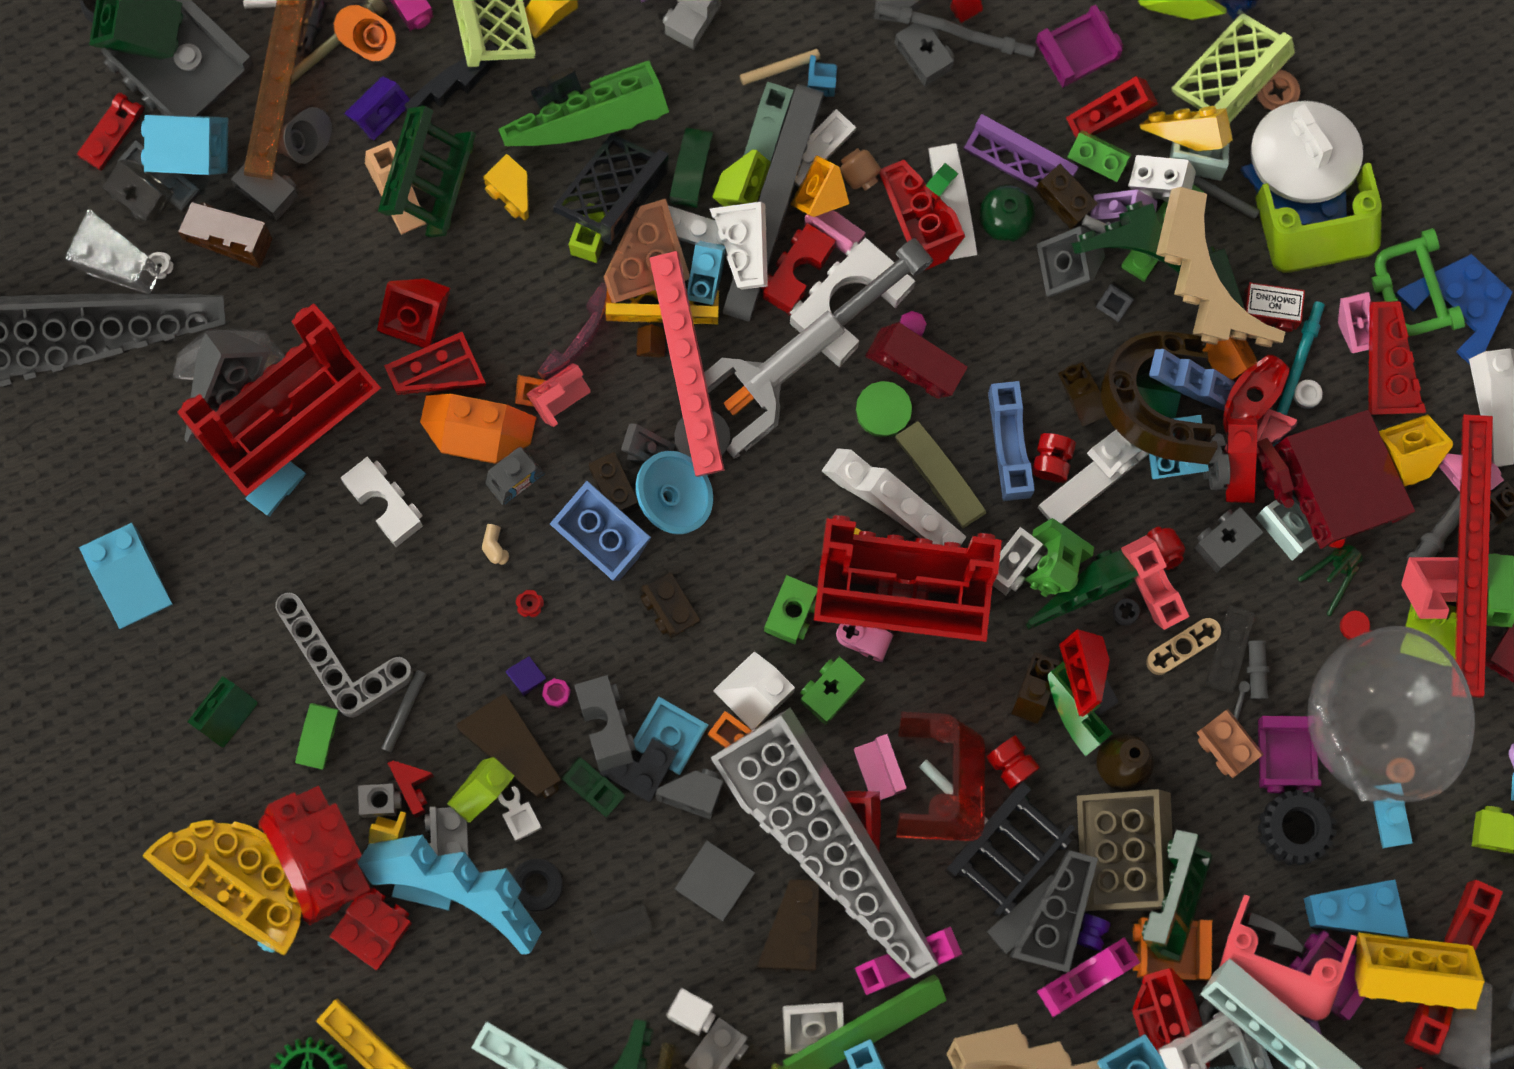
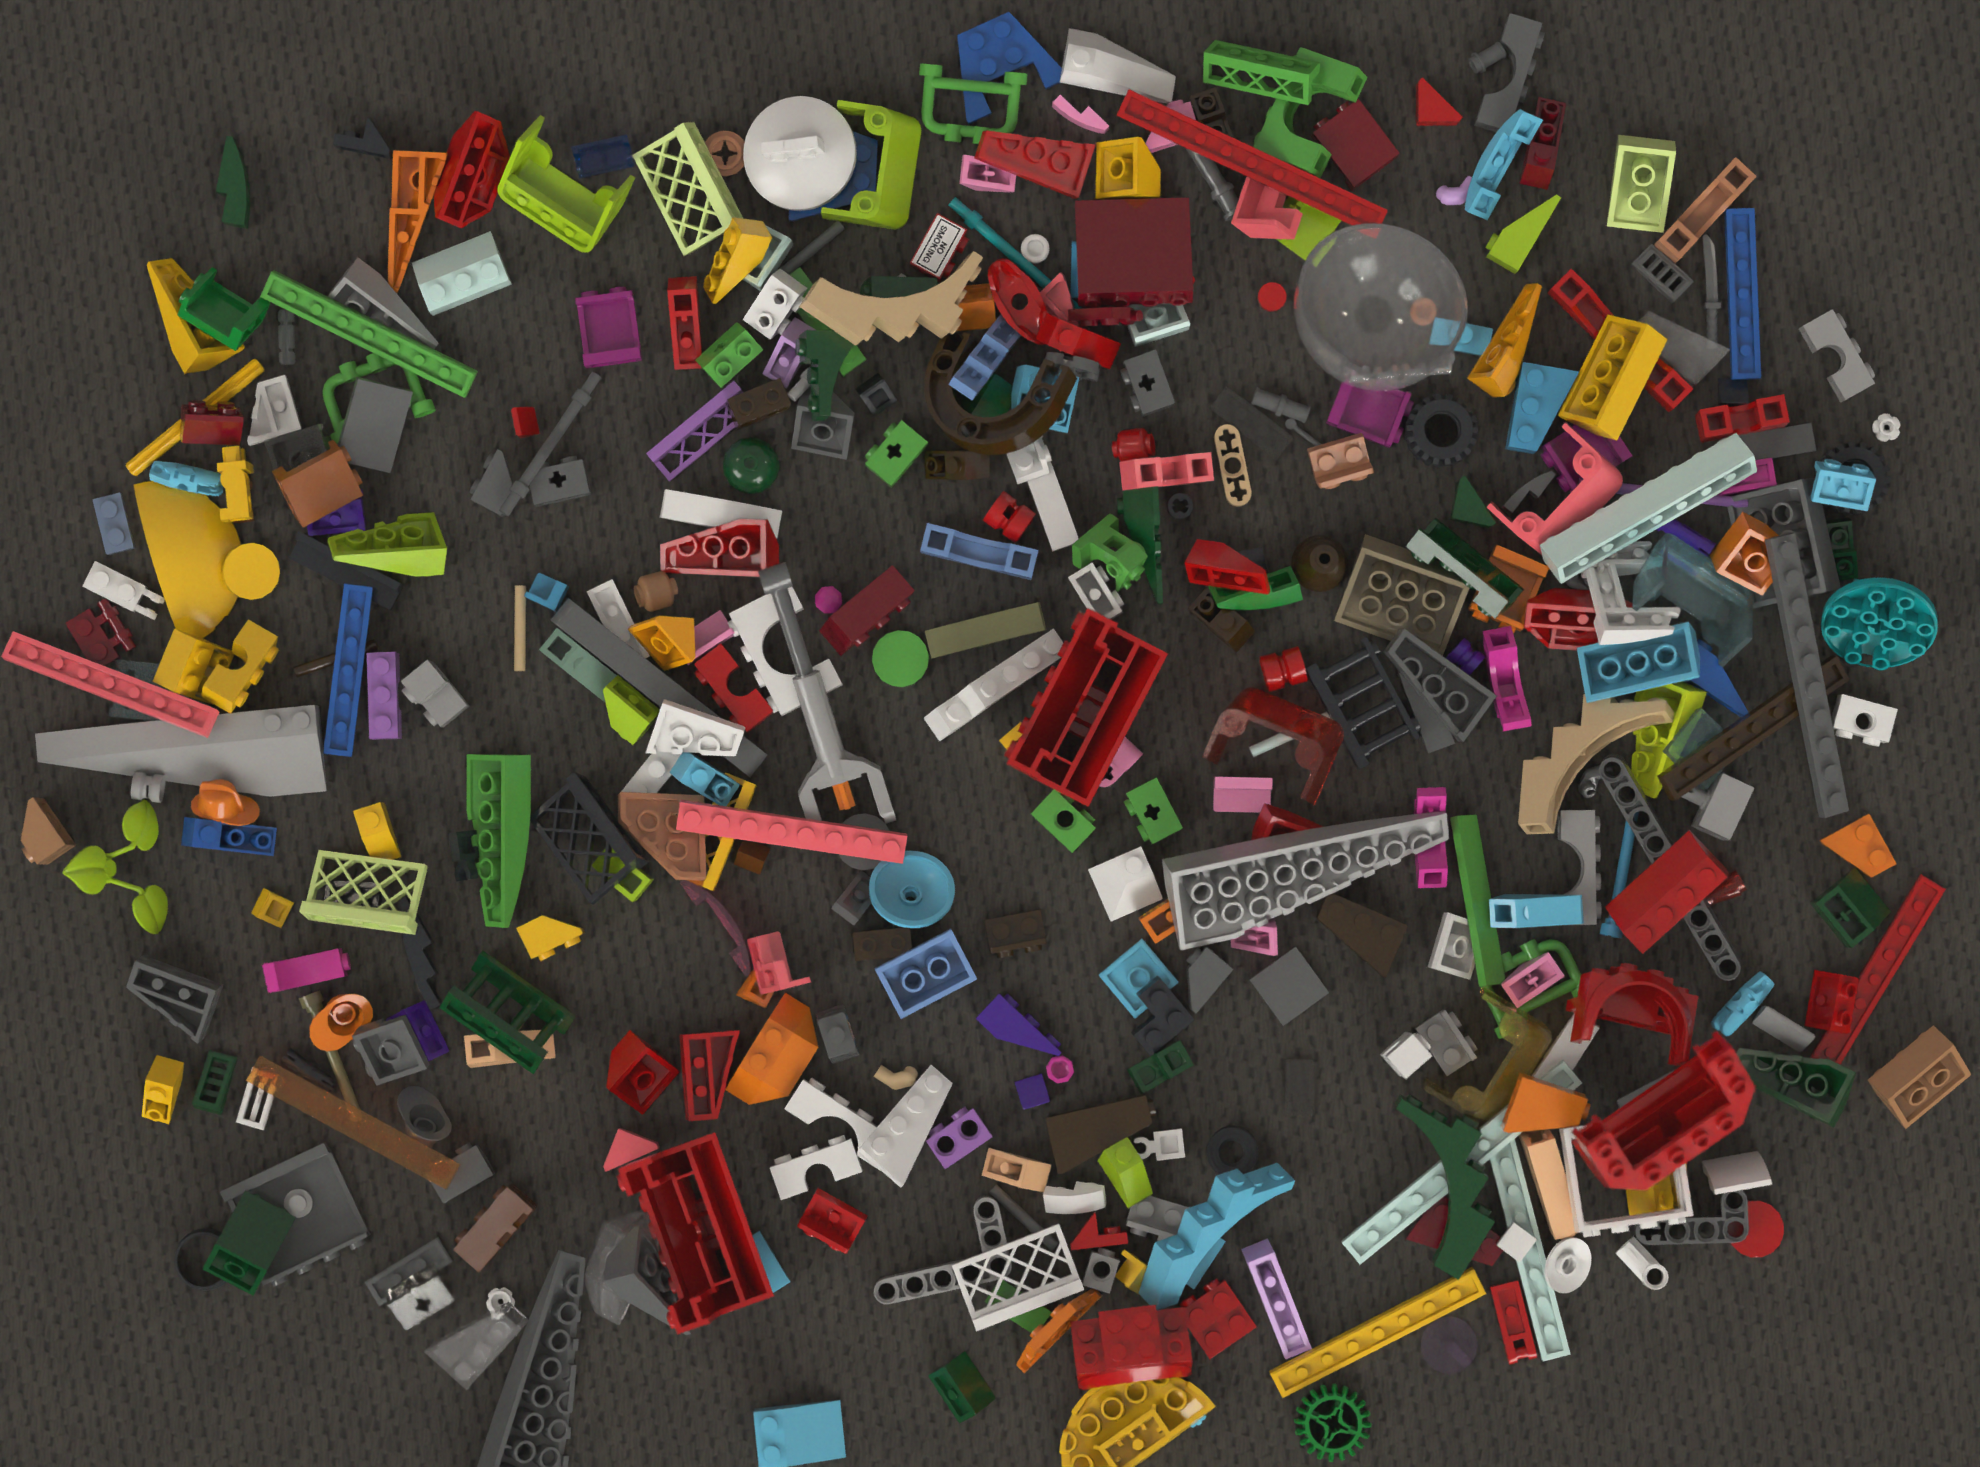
camera: 65 degrees left, 10 degrees up
(110, 132) = (346, 1304): red plate -> none
(185, 144) = (394, 1236): medium azure slope -> none
(302, 773) = (1046, 1336): none -> orange wing
(322, 735) = (1027, 1300): none -> white fence
(337, 533) = (831, 1221): none -> red bracket
(345, 322) = (628, 1147): none -> coral slope
(355, 83) = (389, 1049): none -> dark grey plate
(410, 978) = (1276, 1298): none -> lavender slope
(424, 545) = (813, 1103): none -> white arch
(439, 756) = (1083, 1199): none -> white slope
(443, 565) = (904, 1130): none -> white wing
(446, 687) = (1016, 1170): none -> light nougat slope
(453, 626) = (962, 1143): none -> medium lavender brick
(524, 598) = (970, 1069): red plate -> none
(581, 629) = (1011, 1026): none -> dark purple slope
(611, 744) = (1132, 1036): dark grey arch -> none
(691, 167) = (591, 753): dark green slope -> none
(749, 833) = (1259, 939): none -> bright pink slope
(942, 179) = (701, 519): green piece -> none
(1056, 339) = (892, 469): none -> bright green brick
(1234, 883) = (1469, 507): none -> dark green slope
(1345, 561) = (1209, 280): dark green plant -> none
(1389, 861) = (1504, 355): none -> light orange wedge
(1446, 394) = (1087, 119): none -> bright pink slope

